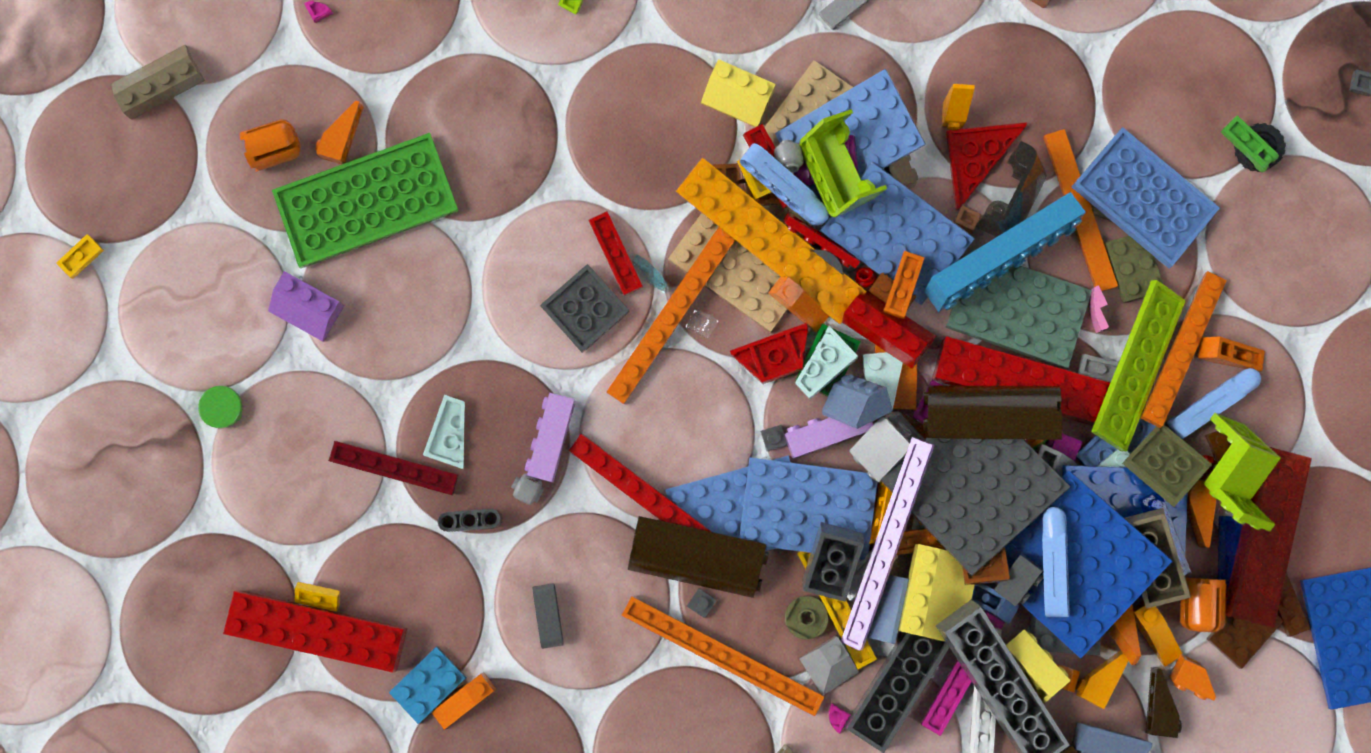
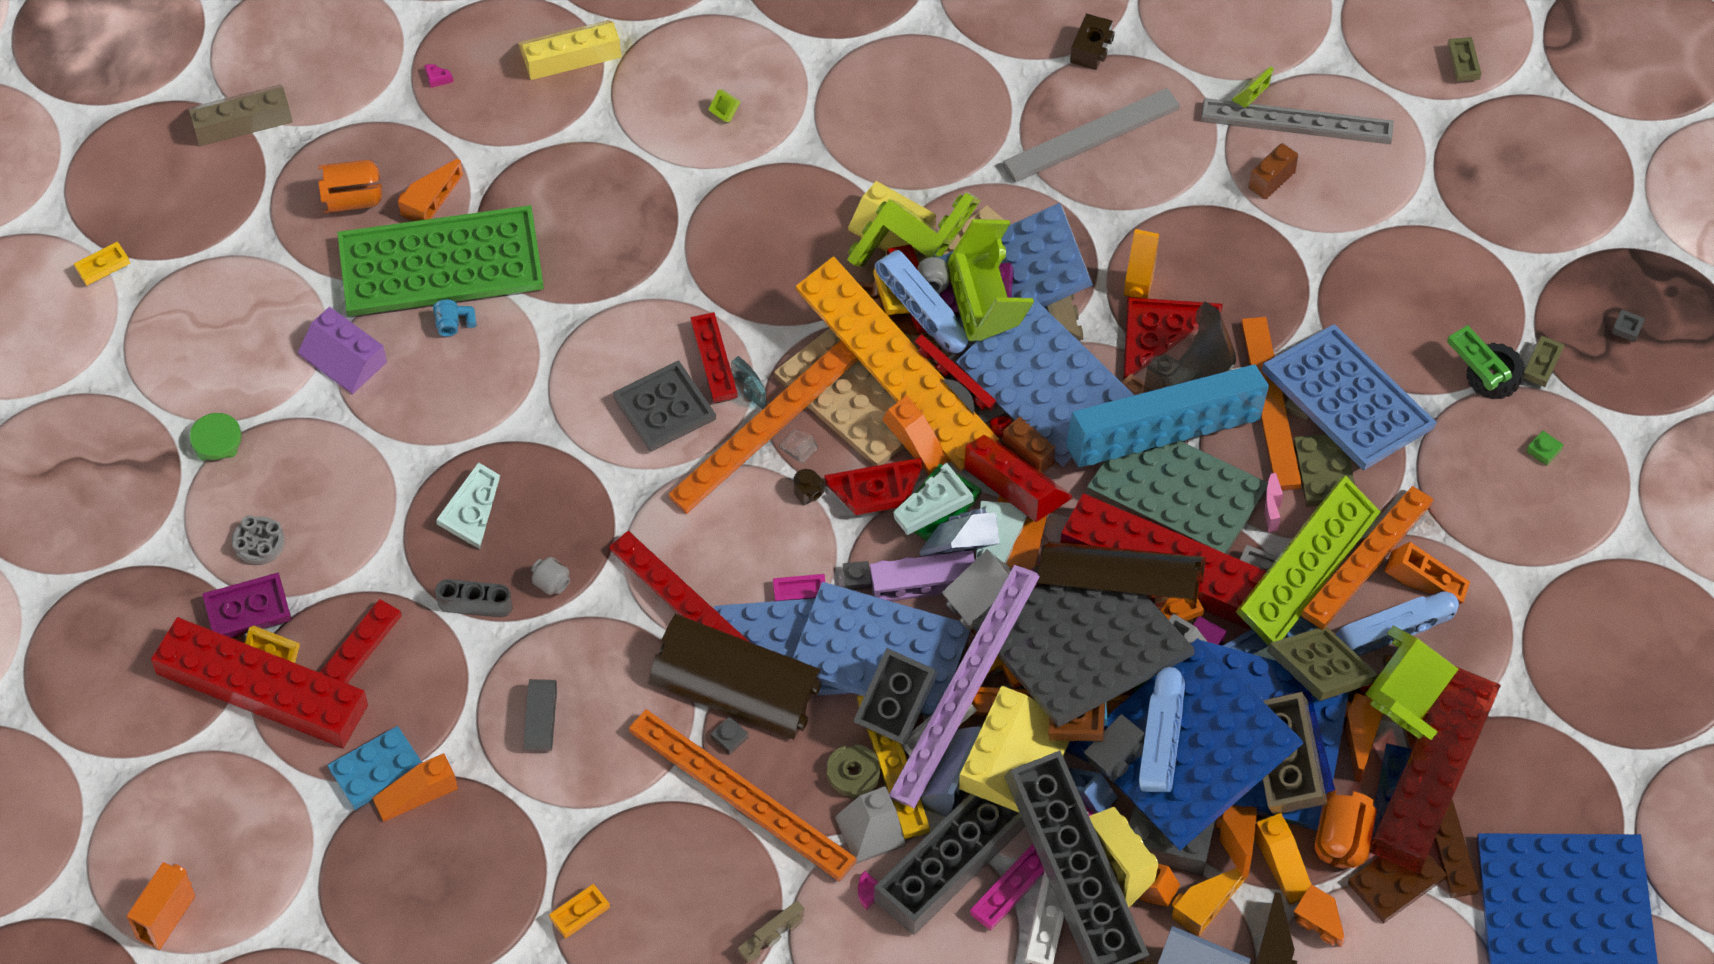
camera: 10 degrees right, 25 degrees down
(280, 496) = (258, 540): none -> light grey tile
(287, 562) = (247, 604): none -> magenta plate
(385, 257) = (446, 317): none -> dark azure piece
(387, 578) = (362, 642): none -> red plate
(393, 468) = (399, 530): dark red plate -> none
(551, 437) = (592, 527): lavender brick -> none
(718, 363) = (808, 486): none -> dark brown plate
(730, 459) = (797, 587): none -> dark pink tile
(762, 109) = (912, 229): none -> lime bracket
(903, 284) = (1041, 427): orange plate -> none
(1298, 130) = (1543, 361): none -> olive plate
(1308, 213) = (1545, 448): none -> bright green plate

